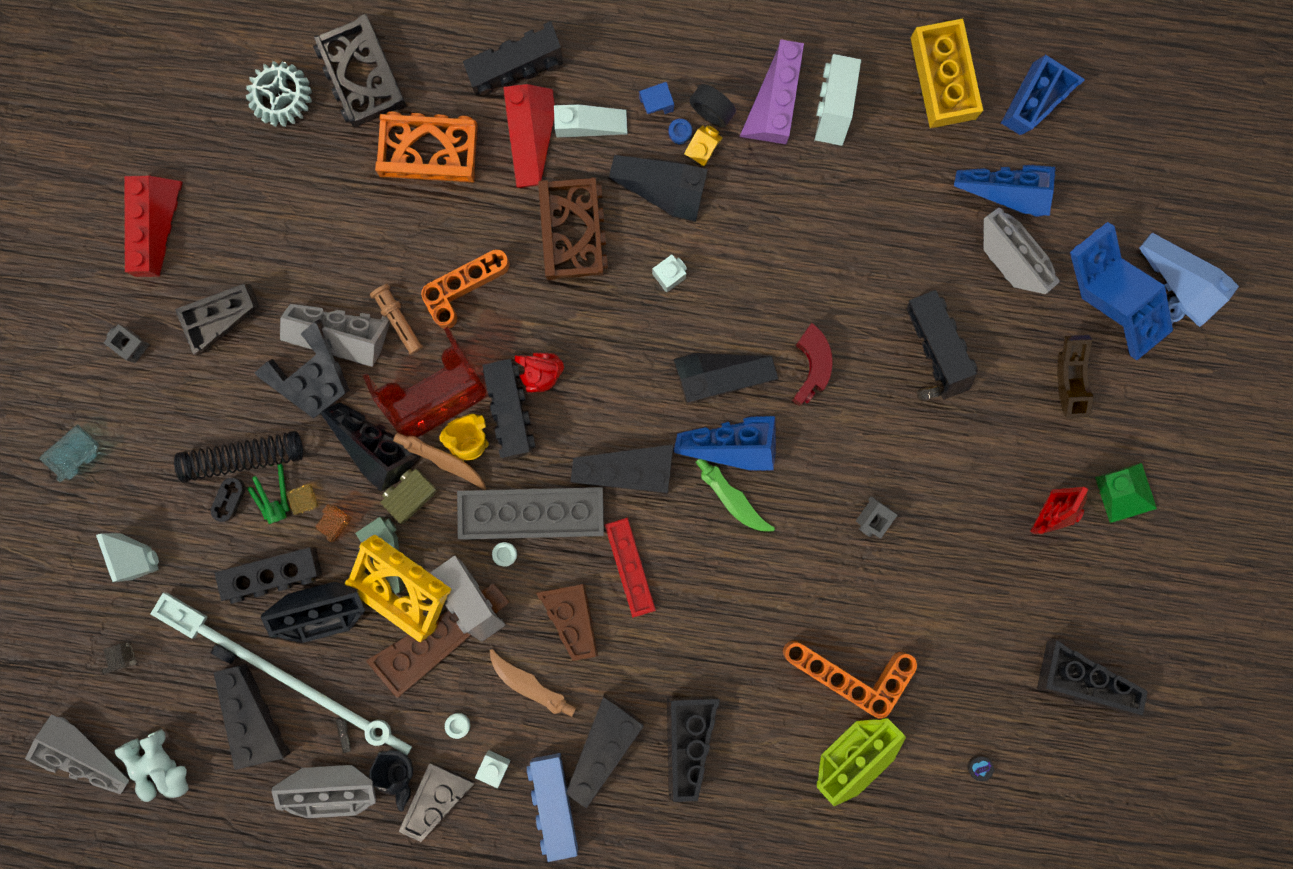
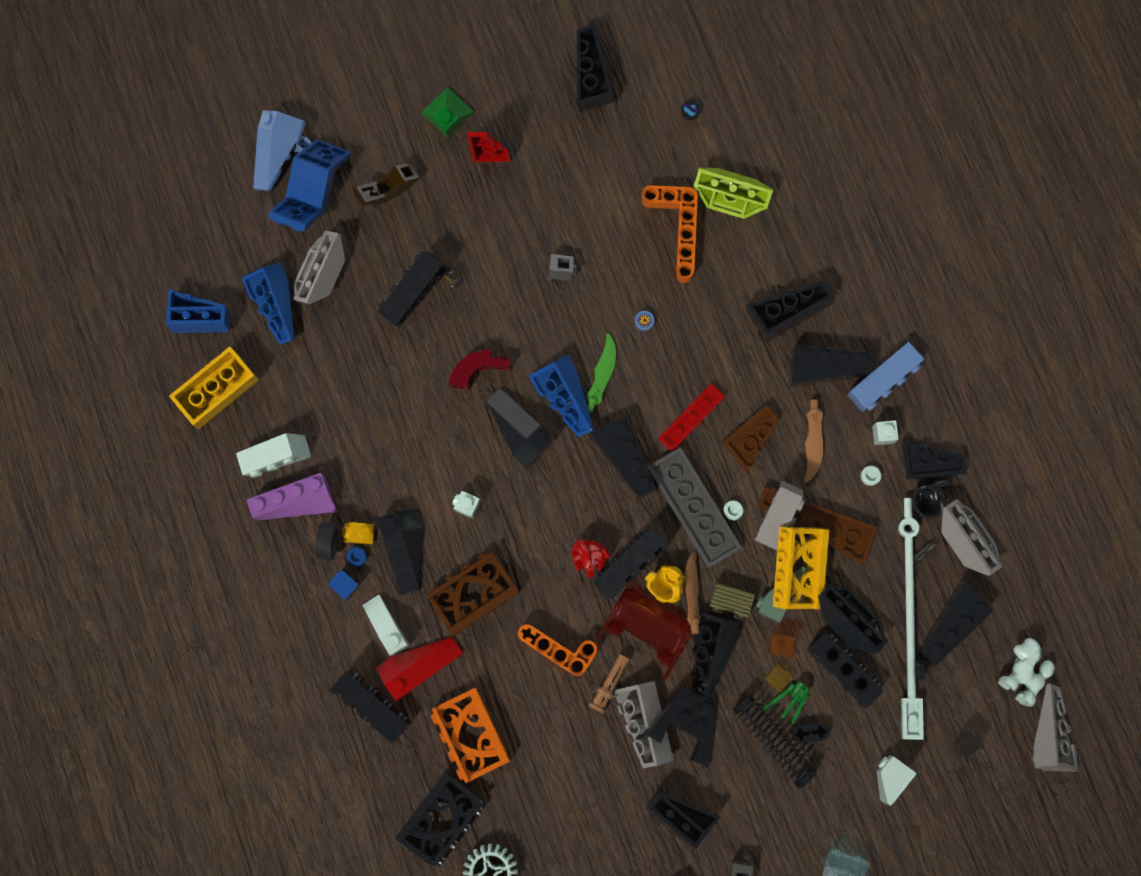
camera: 110 degrees left, 5 degrees down
(765, 577) = (644, 320): none -> tile

